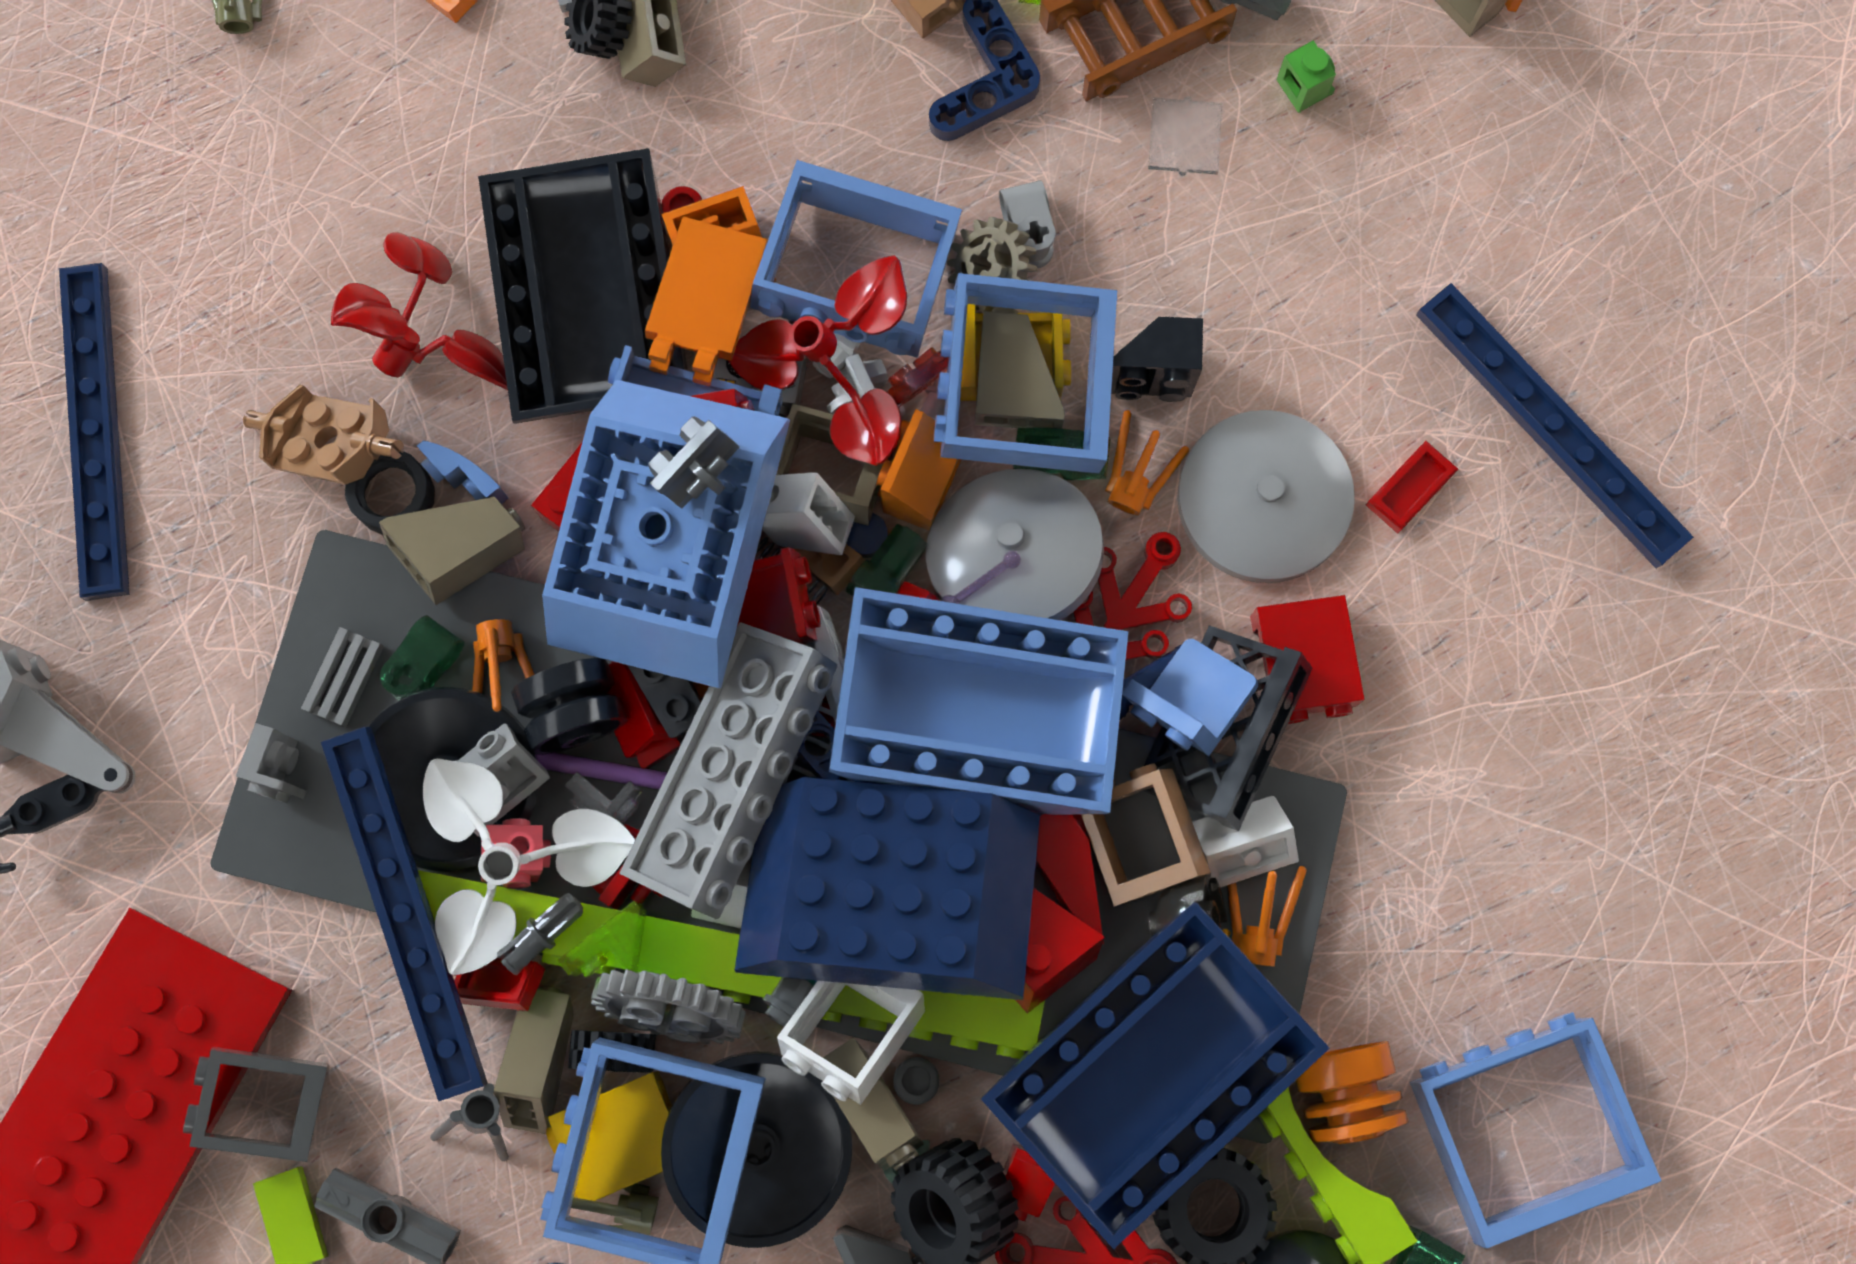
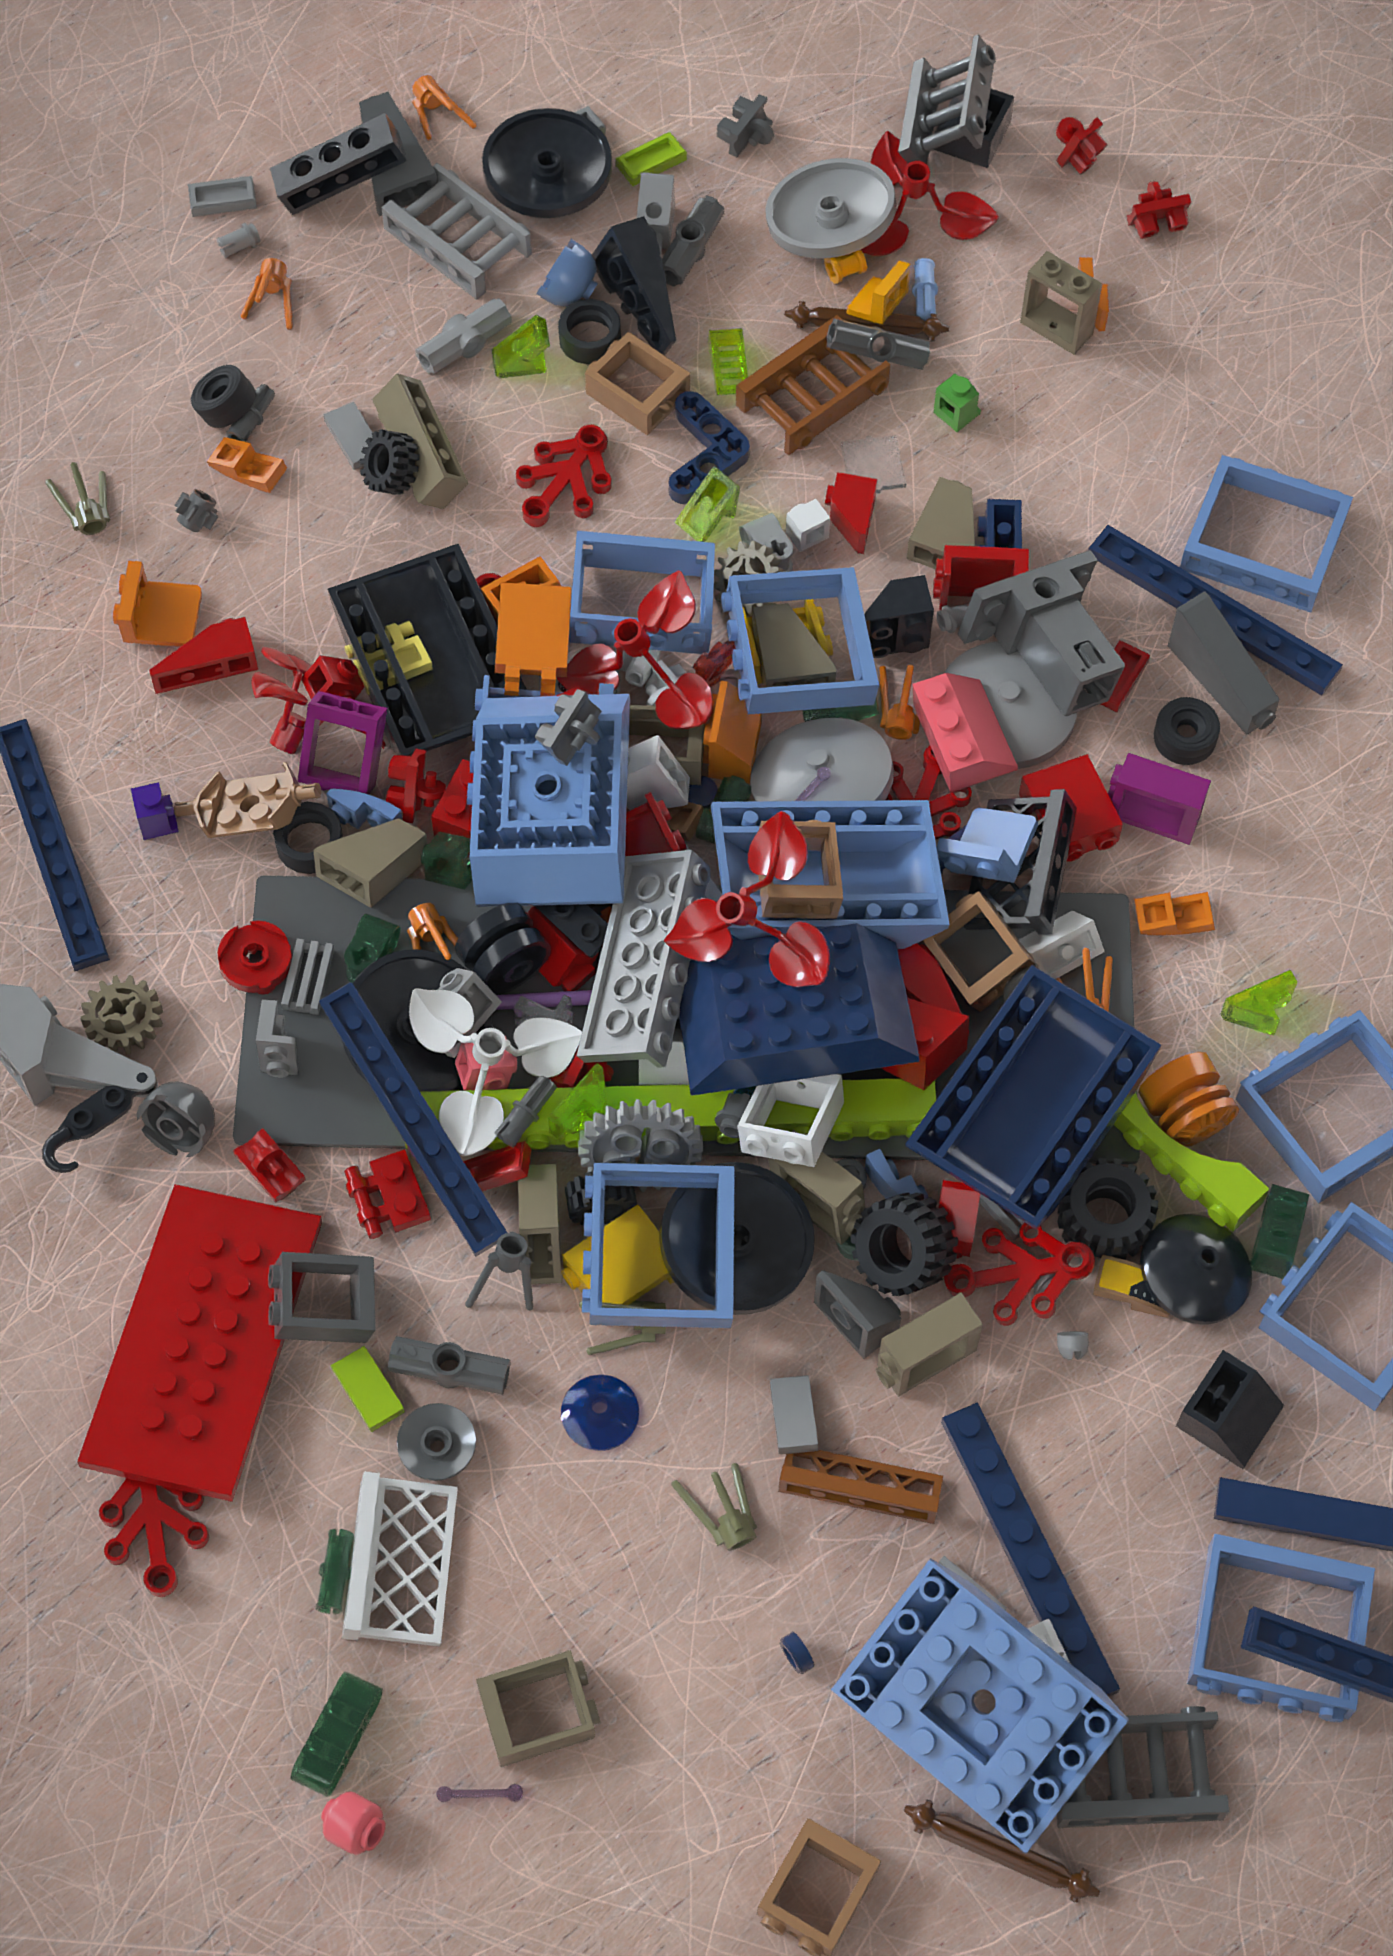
camera: 15 degrees left, 15 degrees down
(101, 668) = (118, 999): none -> dark tan gear
(151, 825) = (177, 1118): none -> dark grey cylinder
(215, 419) = (154, 811): none -> dark purple brick
(238, 914) = (269, 1166): none -> red hips
(260, 642) = (258, 976): none -> red plate
(281, 152) = (155, 610): none -> orange bracket
(332, 226) = (213, 654): none -> red slope
(358, 31) = (196, 510): none -> dark grey gear
(382, 988) = (399, 1191): none -> red plate
(461, 297) = (333, 677): none -> red brick
(476, 368) = (348, 714): none -> magenta window
(519, 456) = (416, 787): none -> red hips
(532, 558) = (448, 860): none -> clear green brick
(559, 278) = (409, 653): none -> light yellow plate
(799, 773) = (702, 930): none -> red plant
(810, 70) = (565, 472): none -> red plant
(929, 757) = (809, 900): none -> medium nougat window
(968, 154) = (711, 501): none -> clear neon green slope
(976, 1124) = (886, 1176): none -> medium blue slope
(1083, 203) = (807, 525): none -> white plate
(1143, 192) = (852, 507): none -> red slope
(1201, 530) = (962, 730): none -> coral slope
(1236, 366) = (951, 618): none -> light grey pin
(1250, 248) = (943, 522): none -> dark tan slope
(1279, 321) = (974, 567): none -> red panel
(1314, 278) = (1001, 524): none -> dark blue brick
(1342, 423) = (1050, 629): none -> dark grey brick
(1397, 824) = (1174, 916): none -> orange slope
(1418, 674) = (1158, 797): none -> magenta window
(1463, 973) = (1256, 1005): none -> clear neon green slope
(1499, 571) = (1186, 749): none -> black tyre
(1544, 508) = (1222, 664): none -> dark grey slope
(1615, 391) = (1253, 575): none -> medium blue window

